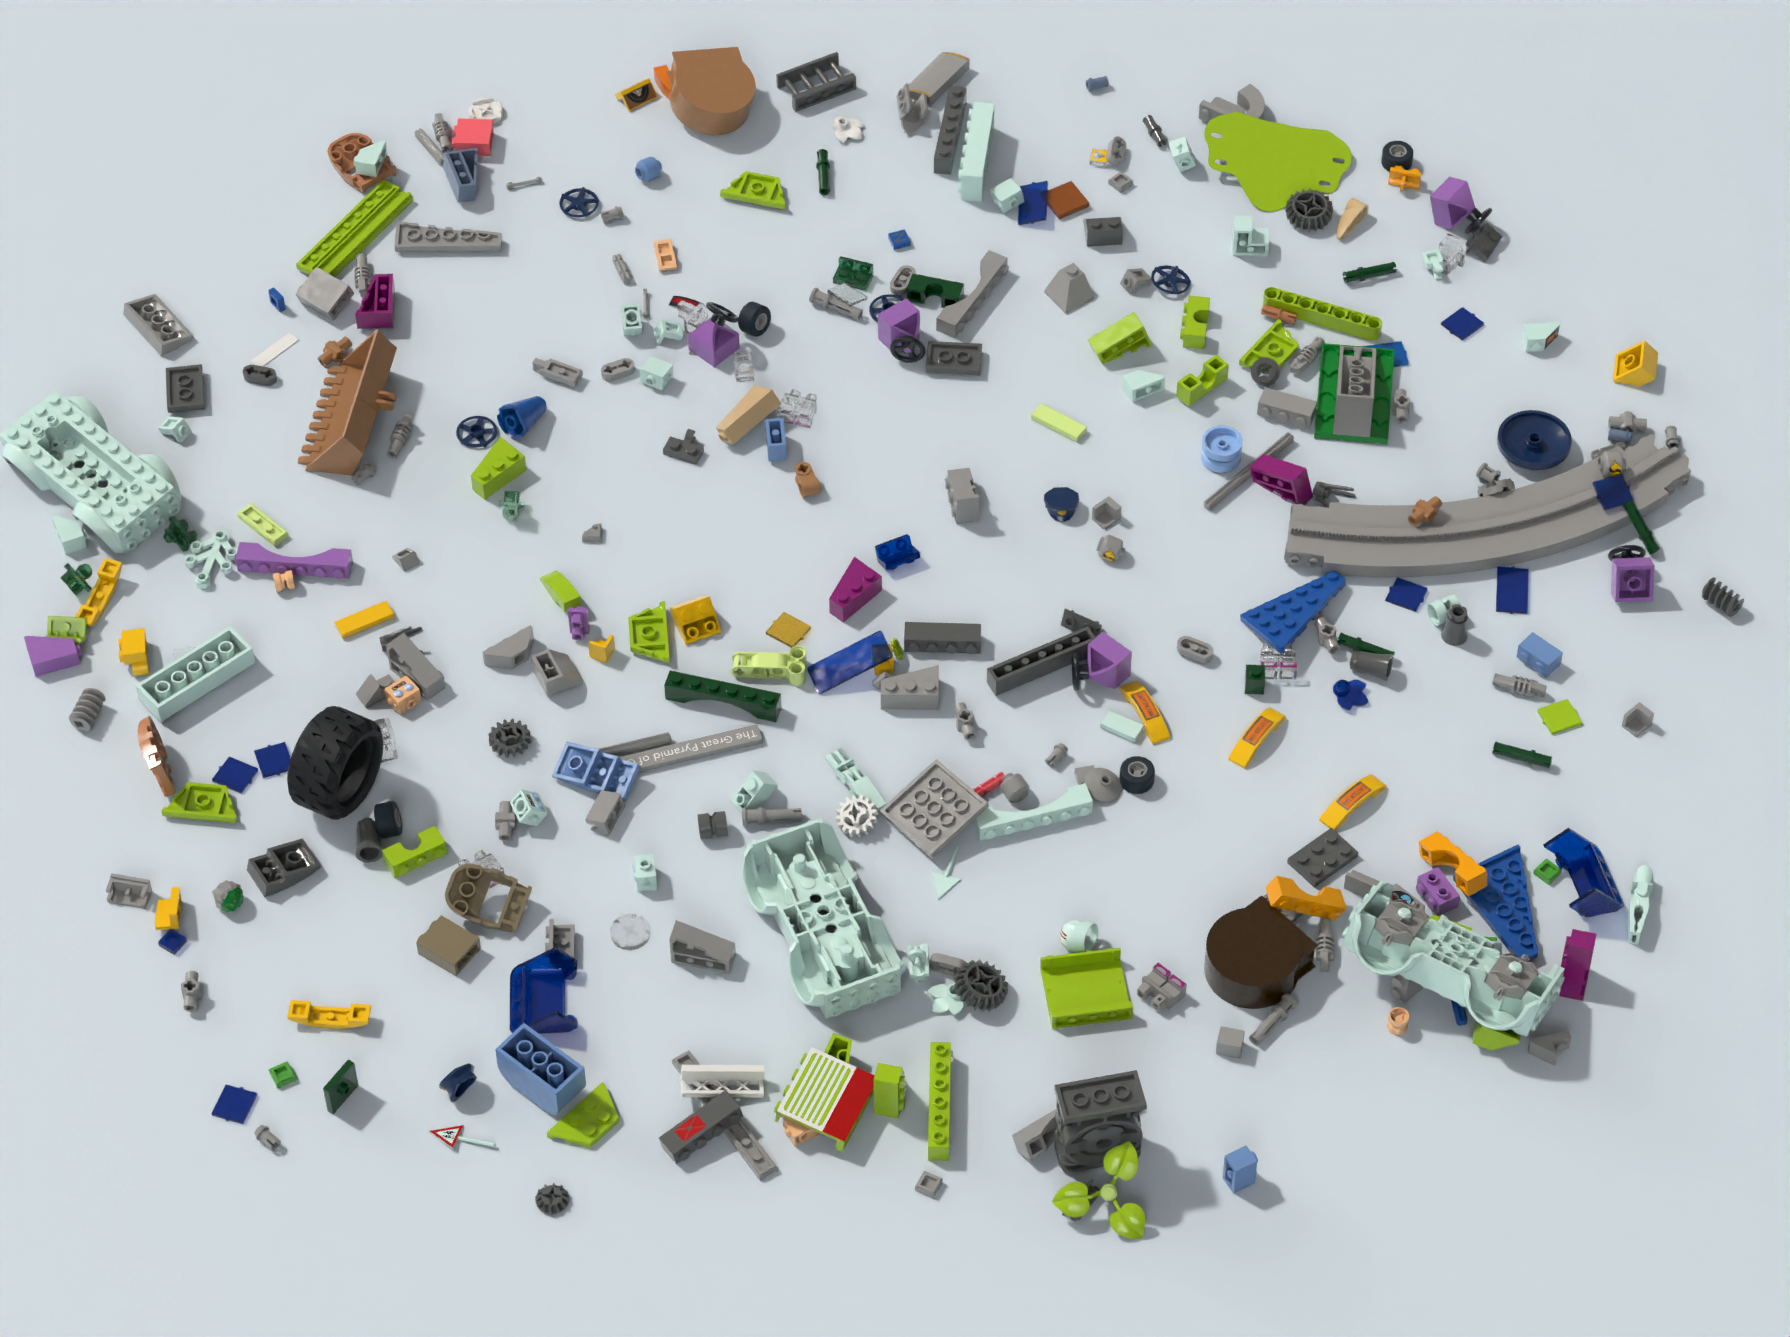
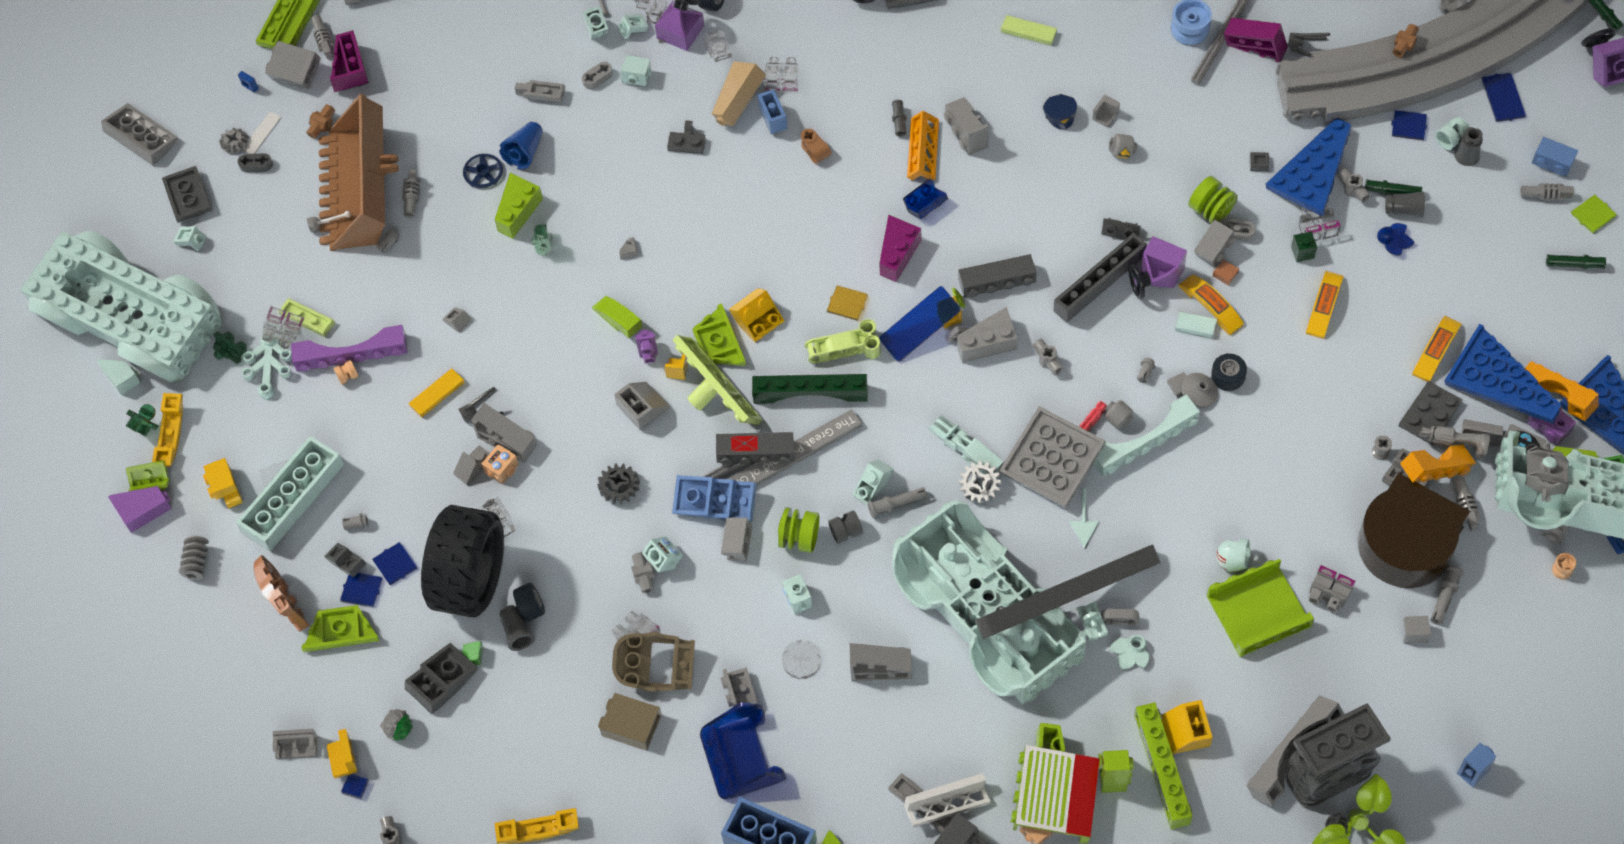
camera: 10 degrees left, 10 degrees up
(228, 745) = (345, 560): none -> dark grey slope
(236, 525) = (285, 332): none -> clear hips
(244, 355) = (234, 146): none -> light grey gear
(249, 714) = (355, 522): none -> light grey pin
(298, 441) = (315, 223): none -> hinge
(322, 852) = (473, 652): none -> bright green slope
(402, 860) = (554, 641): lime arch -> none
(511, 650) = (590, 391): light grey slope -> none
(631, 668) = (714, 383): none -> yellowish green plate
(650, 734) = (754, 448): none -> dark grey brick
(666, 816) = (793, 530): none -> lime wheel
(899, 474) = (899, 118): none -> dark grey pin
(901, 924) = (1067, 591): none -> dark grey beam
(910, 501) = (918, 145): none -> light orange fence
(974, 1074) = (1187, 727): none -> yellow slope
(978, 991) = (1160, 632): dark grey gear -> none
(1166, 655) = (1215, 243): none -> light grey brick
(1170, 686) = (1225, 272): none -> nougat tile
(1178, 615) = (1212, 199): none -> lime wheel
(1242, 594) = (1259, 161): none -> dark grey tile
(1261, 876) = (1382, 447): none -> light grey bush
(1327, 877) = (1448, 437): none -> light grey piece
(1398, 837) = (1493, 374): none -> blue wing

